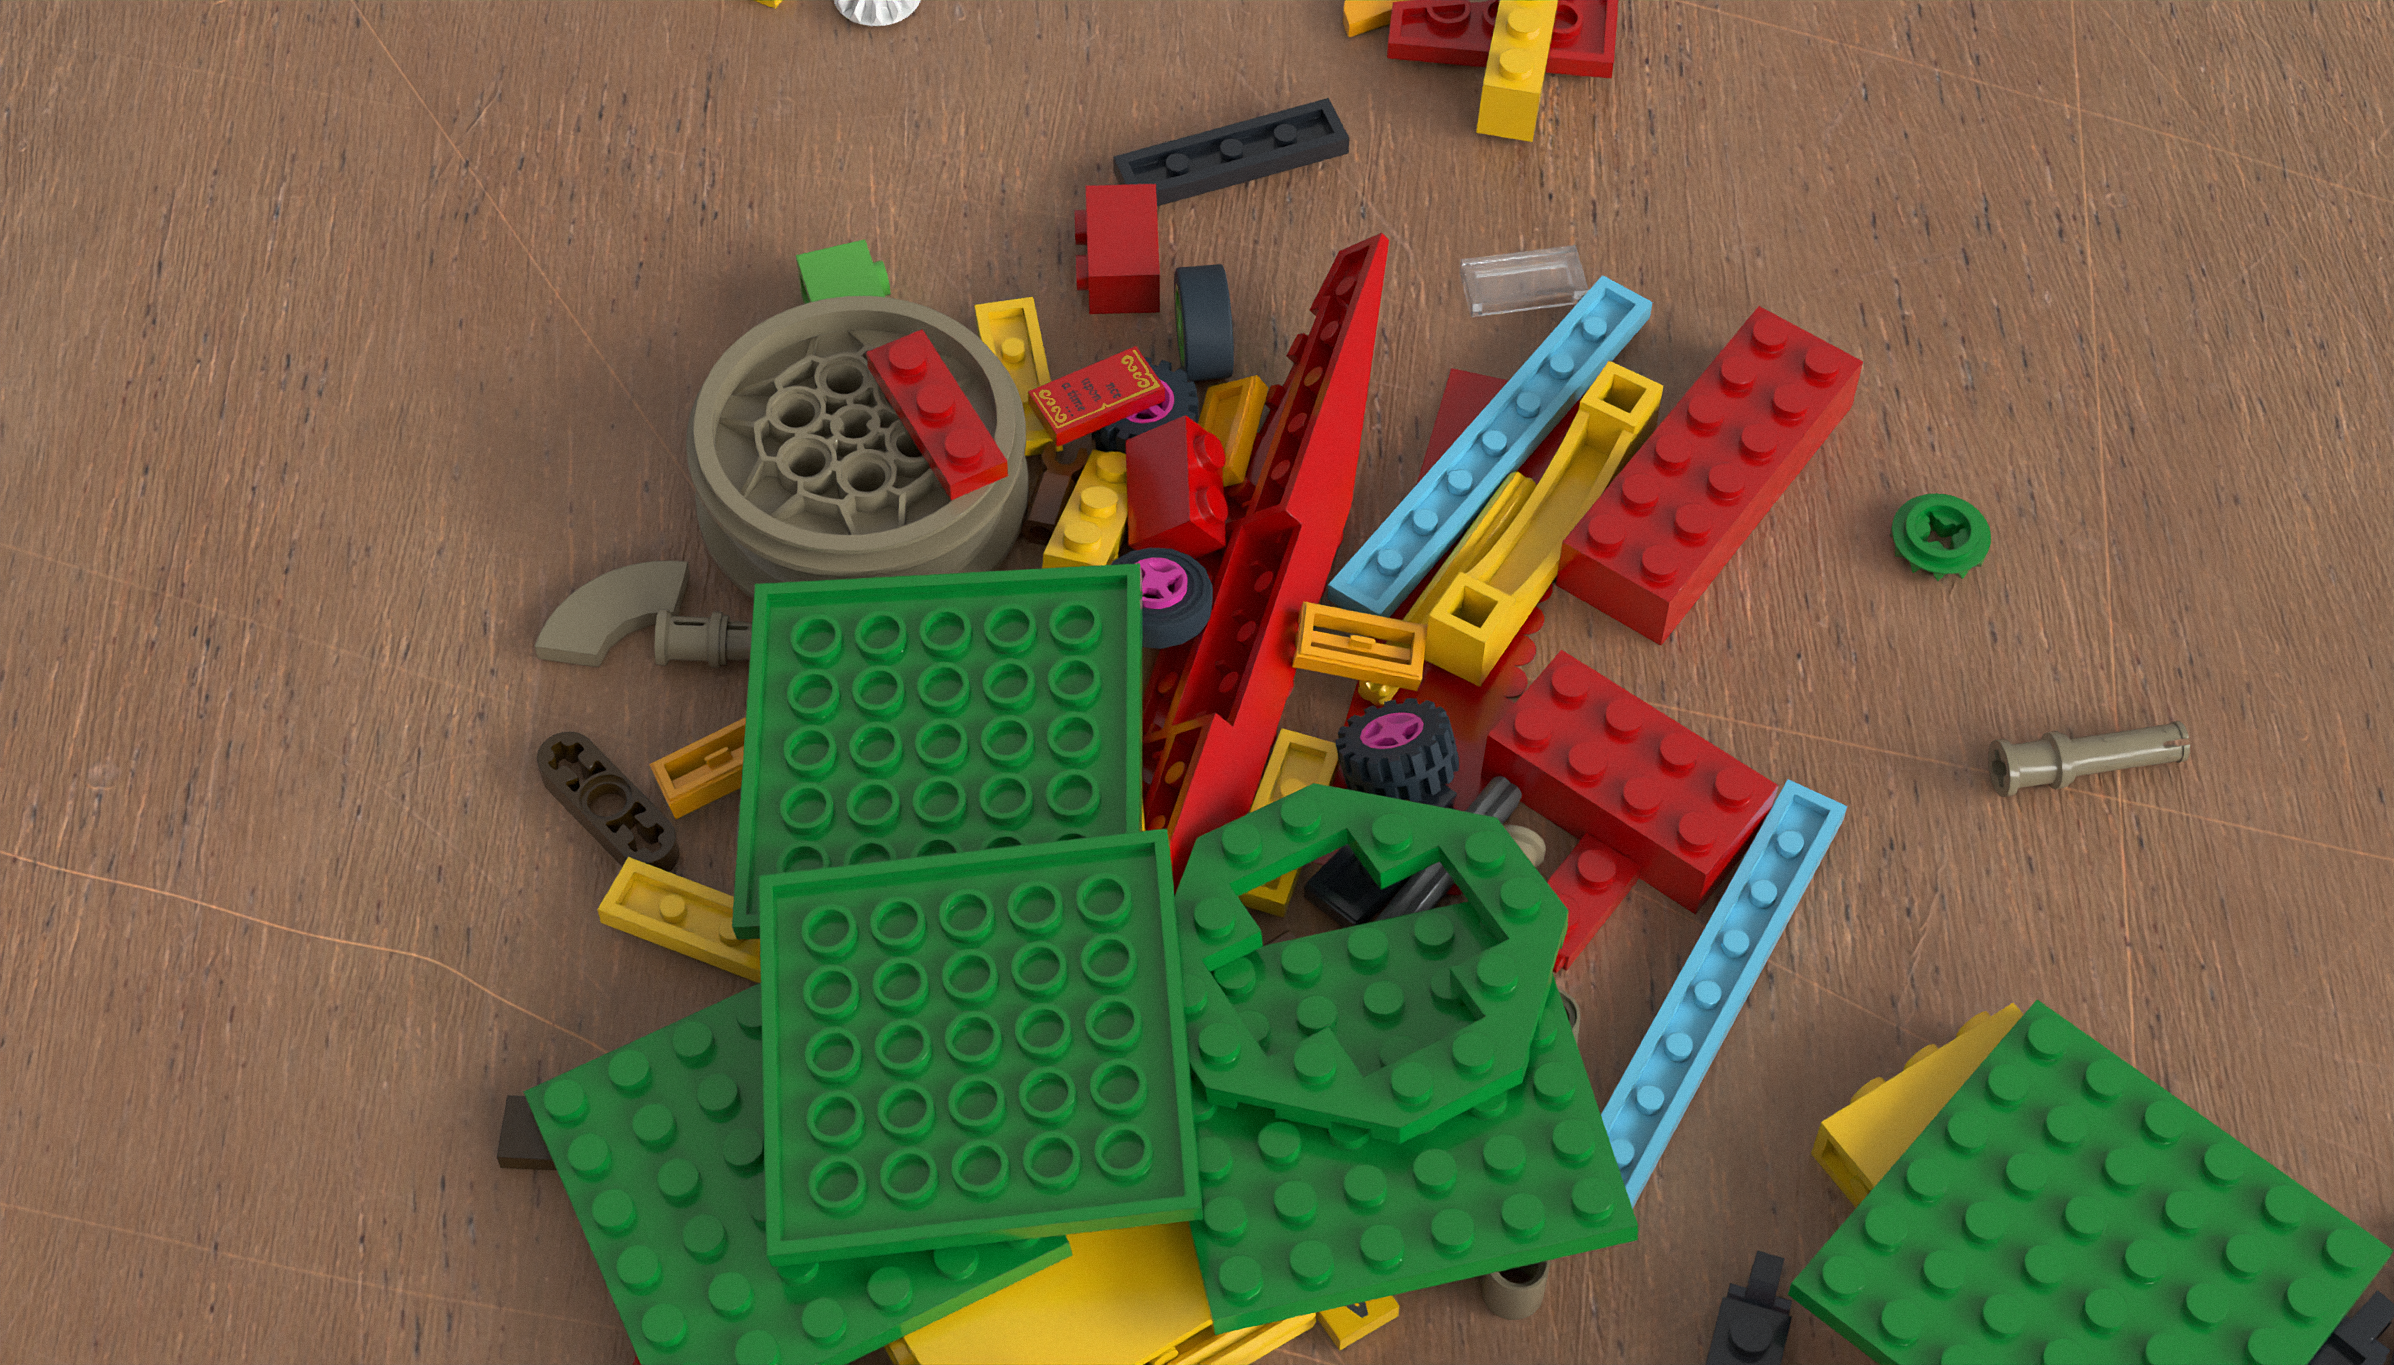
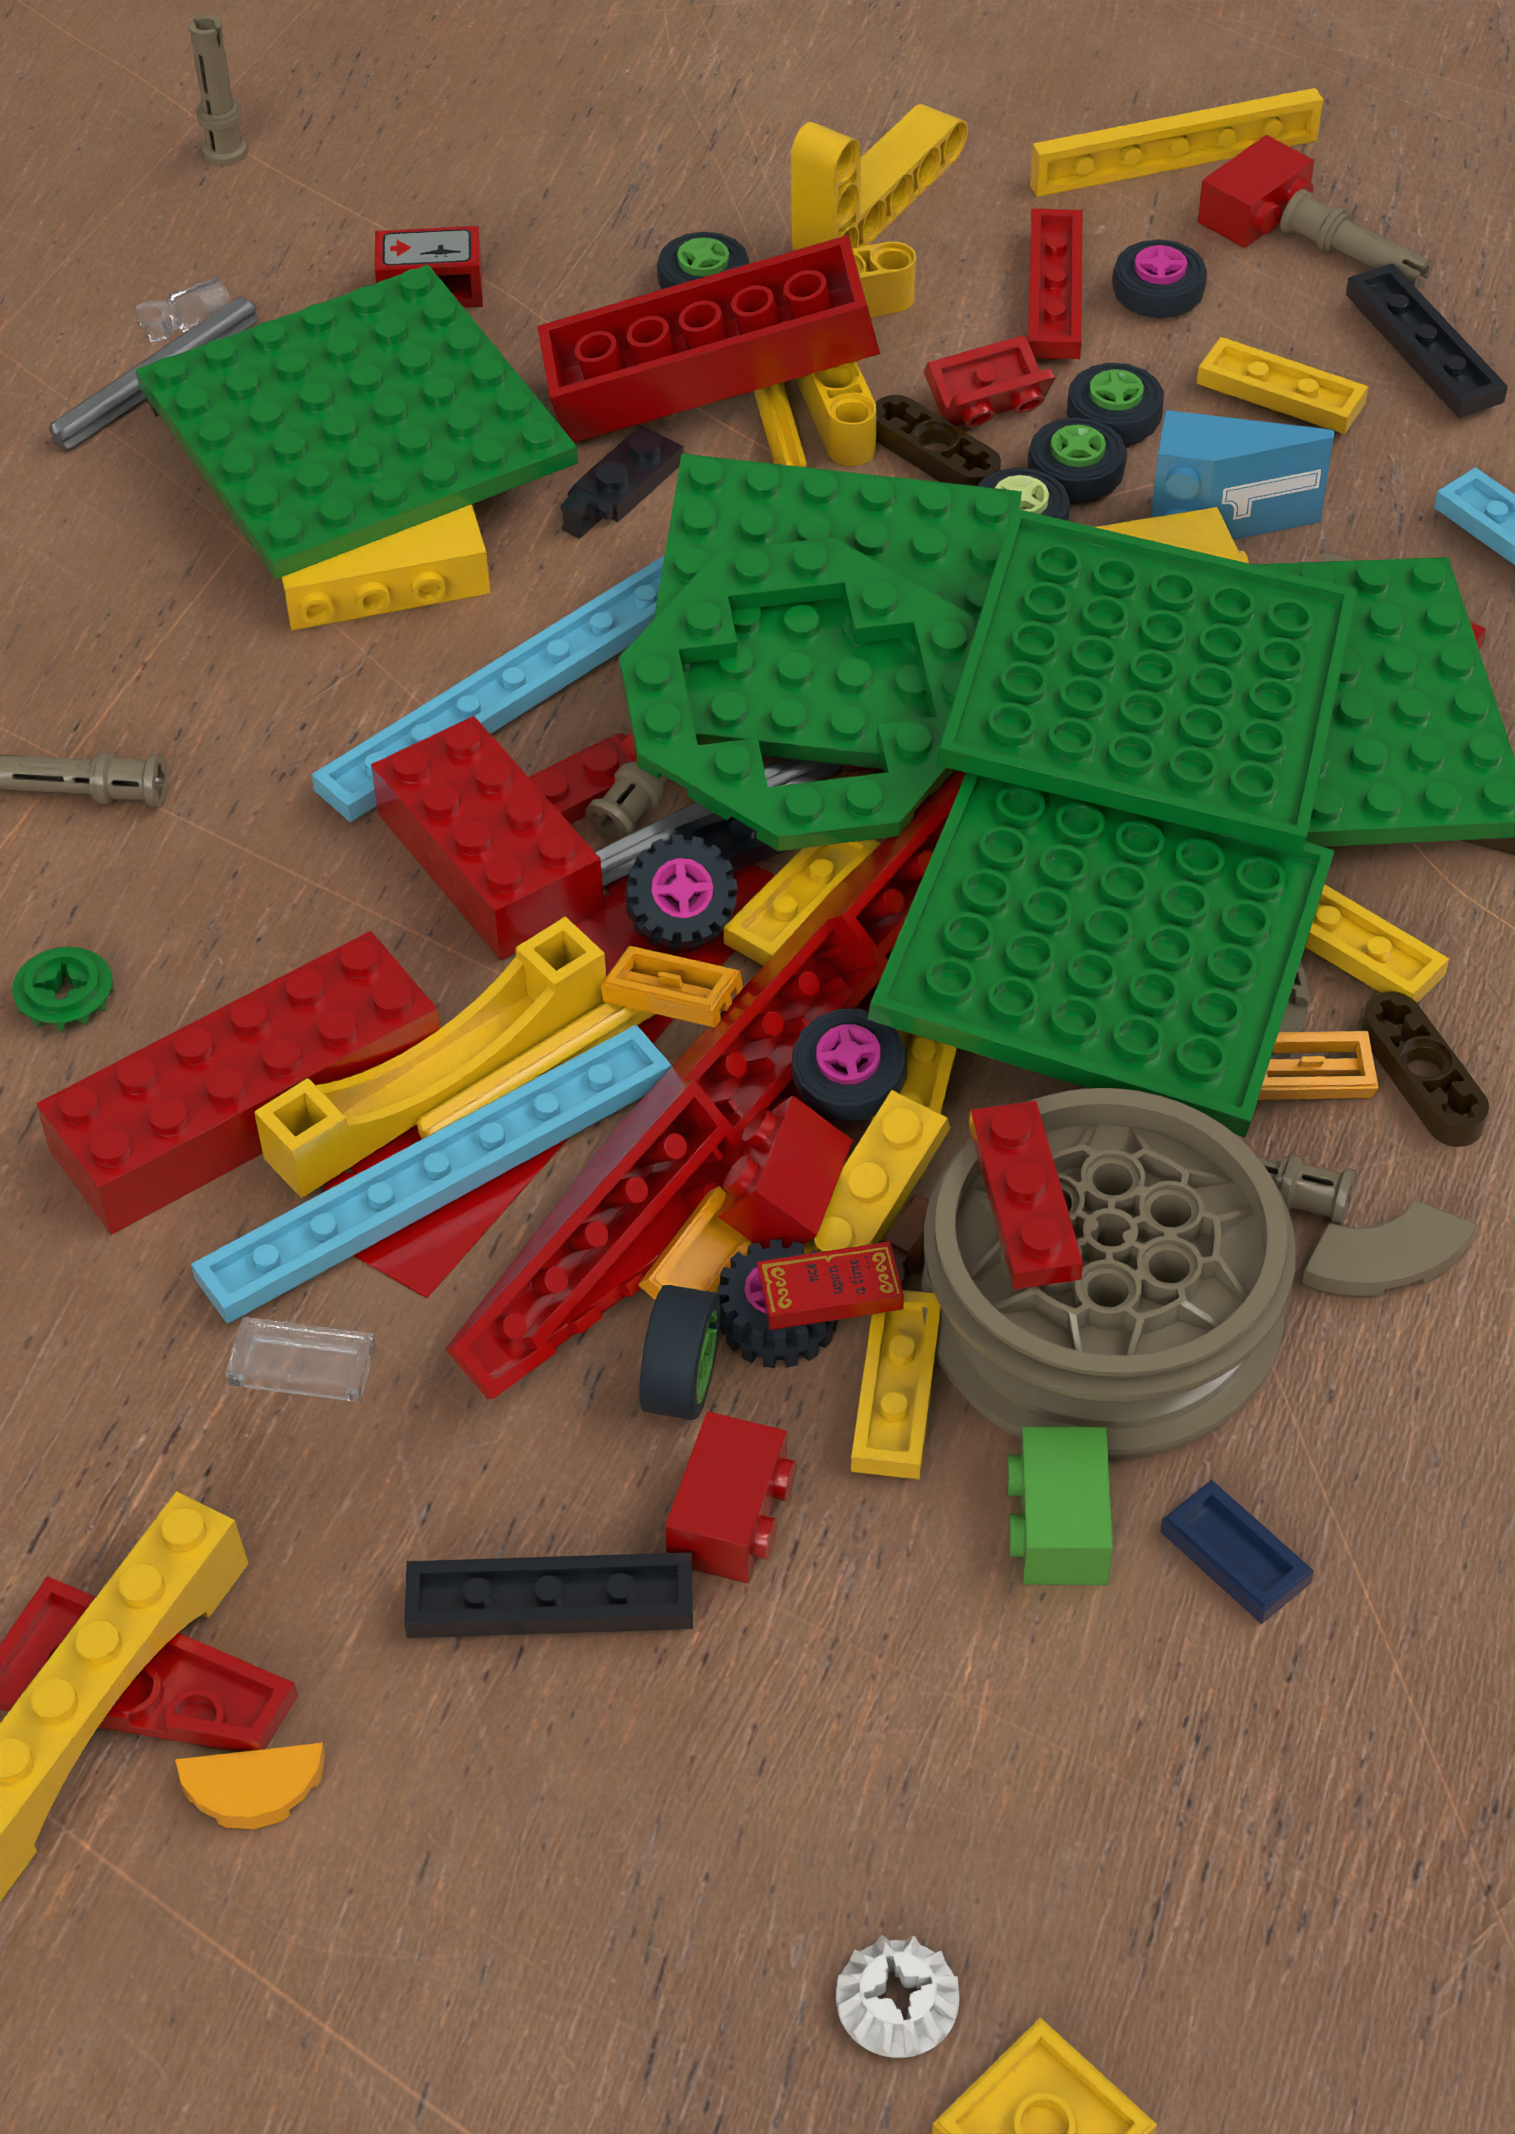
camera: 160 degrees left, 5 degrees down
(690, 326) = (1236, 1551): none -> dark blue tile

